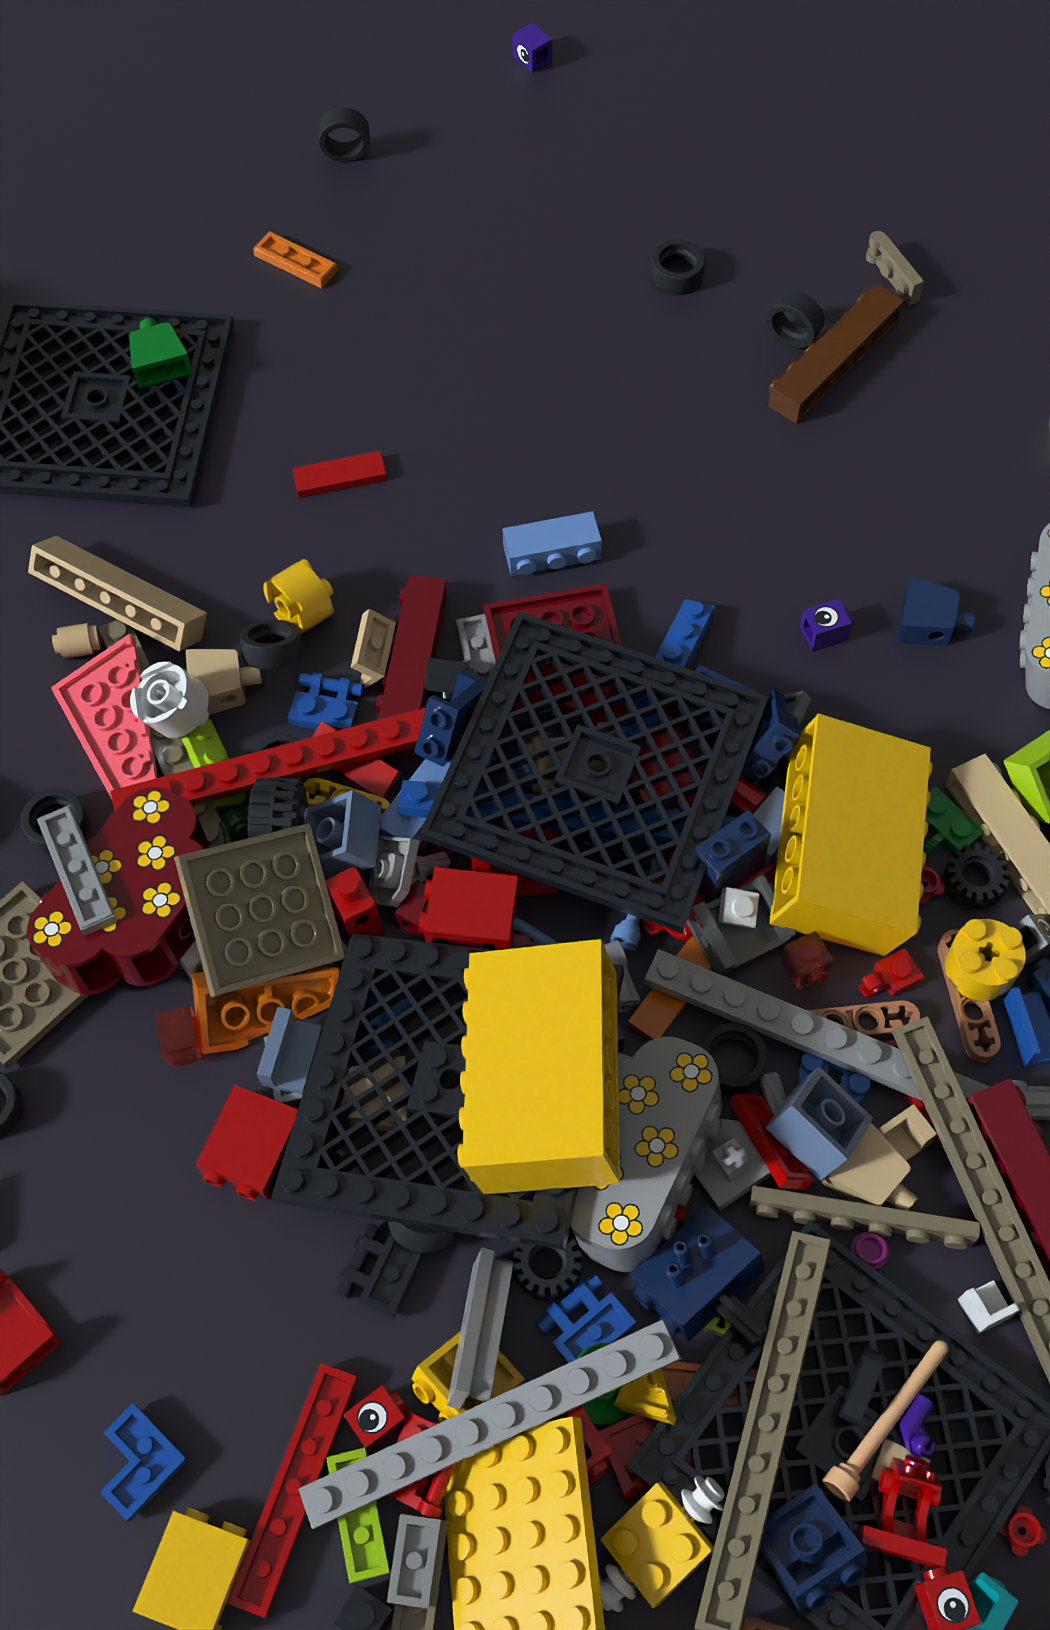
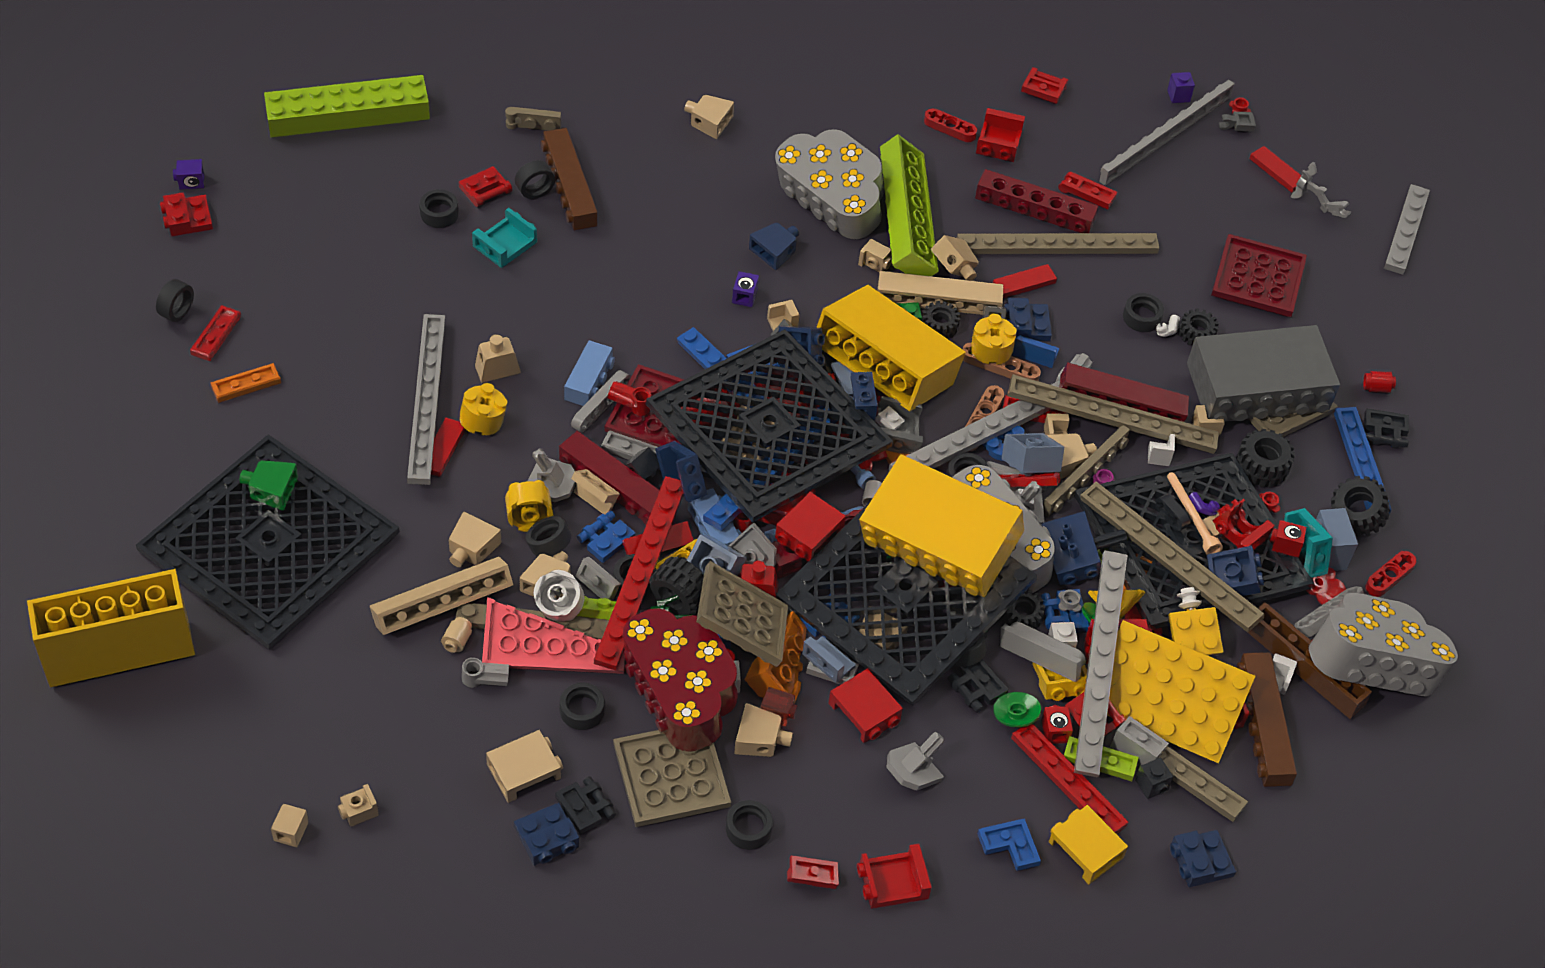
camera: 65 degrees left, 10 degrees down
(39, 698) = (486, 673): none -> light grey piece
(77, 870) = (657, 680): light grey tile -> none
(130, 1038) = (760, 733): none -> tan torso
(187, 1258) = (913, 763): none -> light grey piece
(219, 576) = (472, 540): none -> tan torso
(252, 722) = (597, 579): none -> light grey plate
(342, 196) = (215, 333): none -> red tile
(362, 592) = (554, 474): none -> light grey piece
(365, 1331) = (1017, 709): none -> green dish
(387, 417) = (426, 400): none -> light grey plate
(408, 474) = (483, 409): none -> yellow brick
(478, 77) = (185, 214): none -> red plate
(488, 579) = (597, 403): none -> light grey beam
(496, 445) = (496, 359): none -> tan torso
(528, 1345) = (1064, 632): none -> white brick
(537, 594) = (630, 397): none -> red piece
(601, 1309) = (1069, 595): none -> light grey plate
(688, 351) = (505, 239): none -> teal panel
(750, 105) = (347, 106): none -> lime brick
(752, 286) = (484, 186): none -> red plate
(807, 960) = (938, 412): clear red brick -> none
(822, 688) = (780, 311): none -> tan panel
(892, 973) = (968, 385): red plate -> none
(1013, 731) = (875, 256): none -> tan brick

